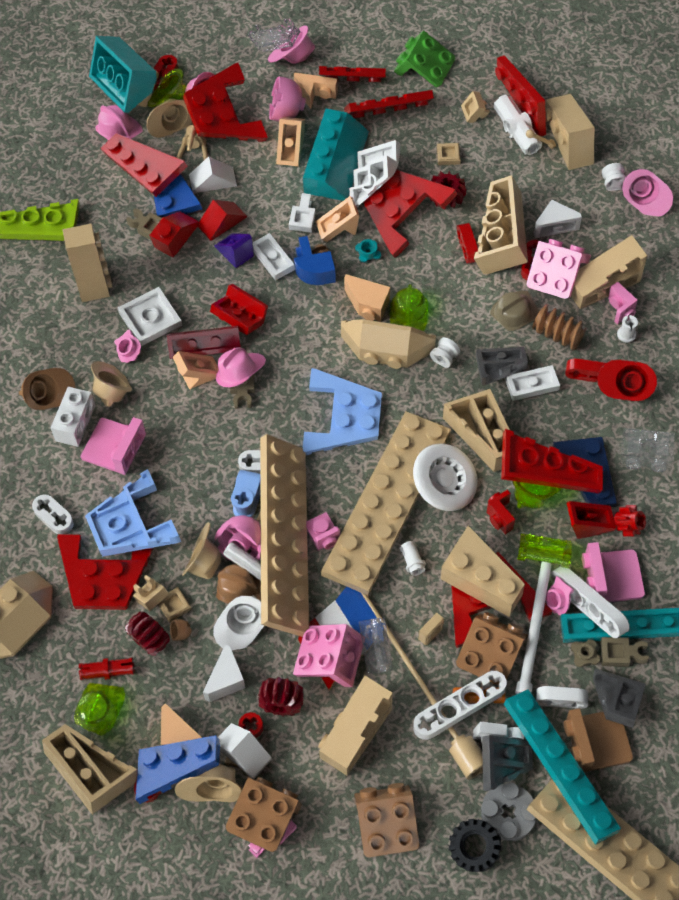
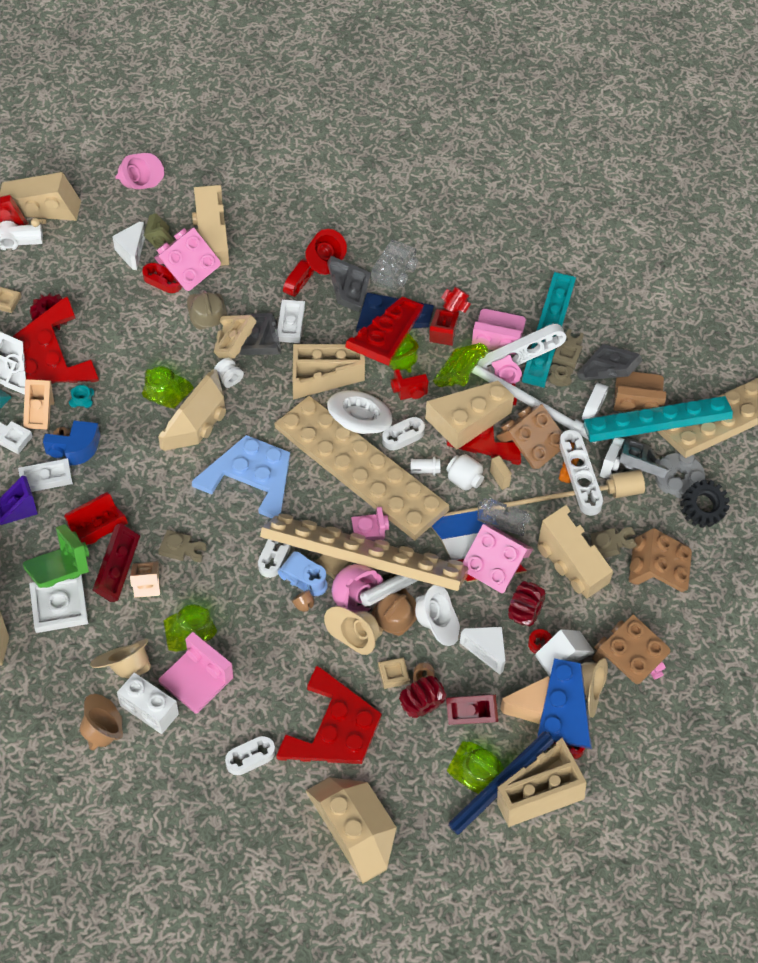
camera: 75 degrees left, 5 degrees down
(99, 738) = (490, 792): none -> dark blue axle
(106, 668) = (440, 748): red pin -> none
(119, 526) = (296, 692): light blue wing -> none
(128, 347) = (85, 633): bright pink animal -> none
(148, 684) = (472, 709): none -> slope
(150, 594) = (378, 687): tan tile -> none
(164, 424) = (188, 620): none -> clear neon green piece
(182, 298) = (61, 564): none -> bright green bracket
(220, 501) = (303, 601): none -> medium nougat hinge
(237, 367) = (164, 540): bright pink piece -> none
(367, 297) = (137, 412): light nougat slope -> none
(389, 760) = (610, 541): none -> dark tan plate
(419, 596) = (465, 472): none -> white head
(440, 530) = (403, 433): none -> white beam
(467, 242) = (118, 316): red beam -> none
(485, 339) = (233, 335): none -> tan wing
(503, 231) = (121, 280): tan wedge -> none
(559, 327) = (243, 280): medium nougat piece -> none
(582, 233) = (157, 231): none -> olive bracket
(603, 416) = (348, 283): none -> flat silver wing
(614, 176) = (108, 188): white wheel -> none
(623, 301) = (242, 228): bright pink bracket -> none
(627, 332) = (272, 237): white pin -> none

